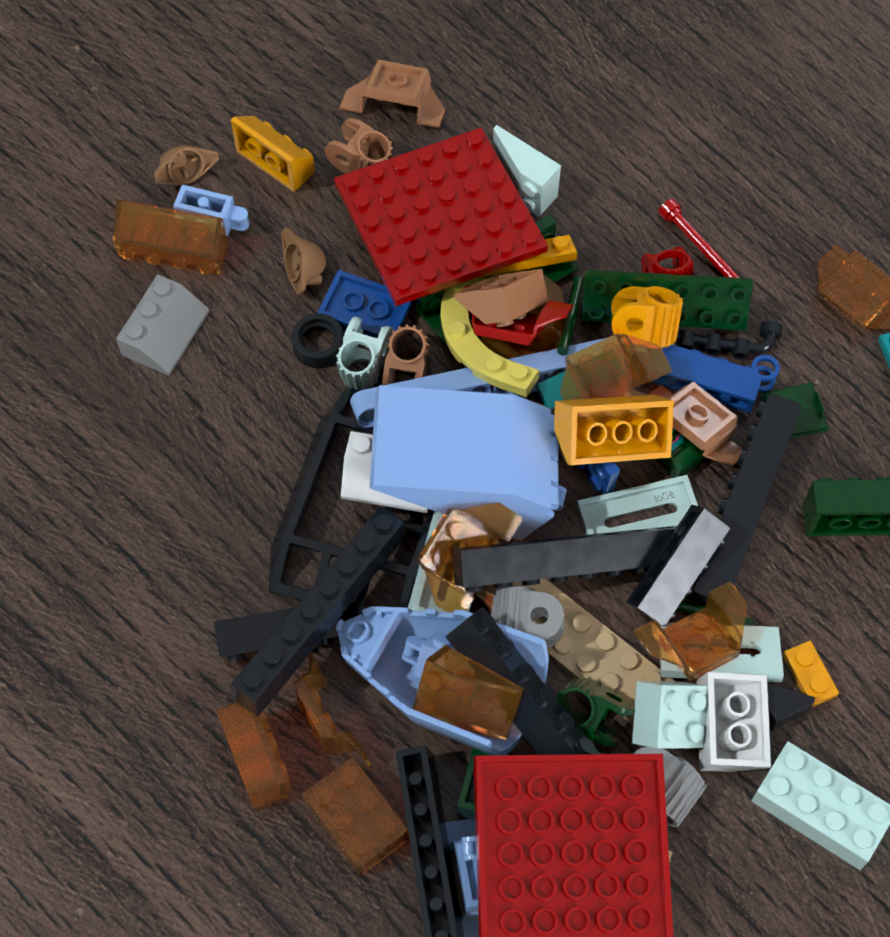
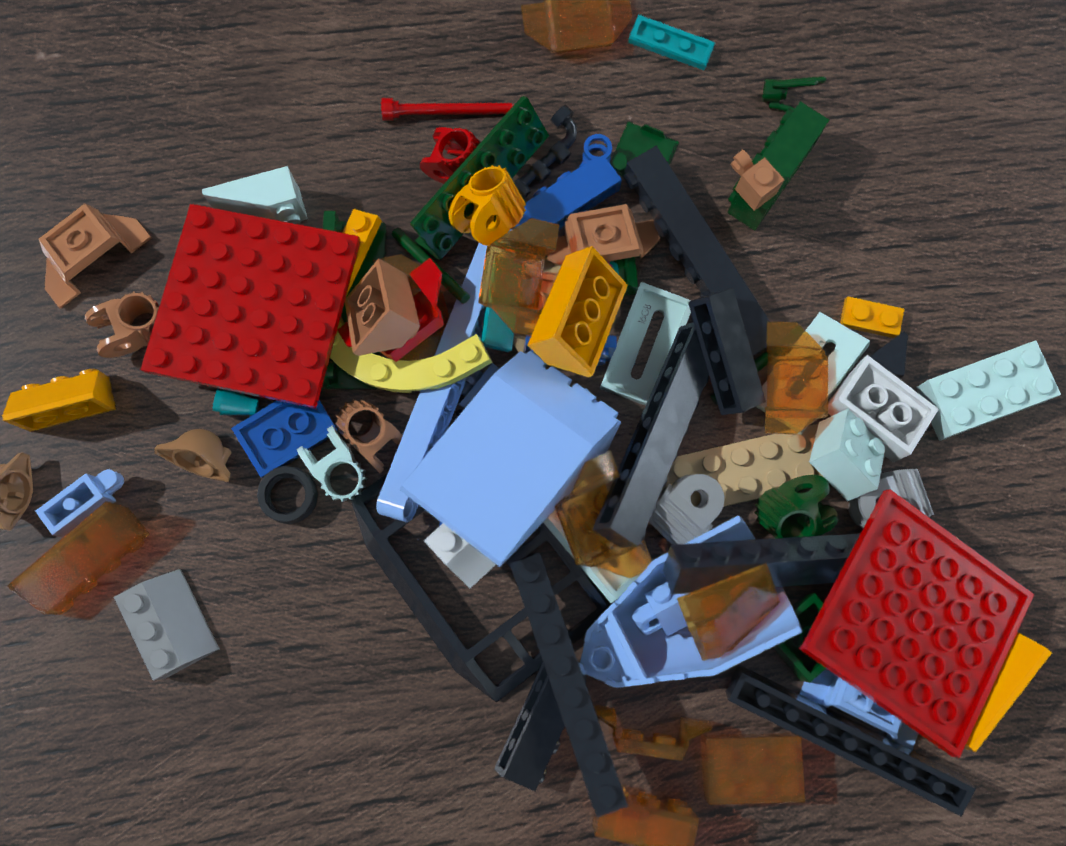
camera: 55 degrees left, 15 degrees up
(358, 259) = (234, 403): none -> teal cone
(829, 483) = (757, 181): none -> nougat brick

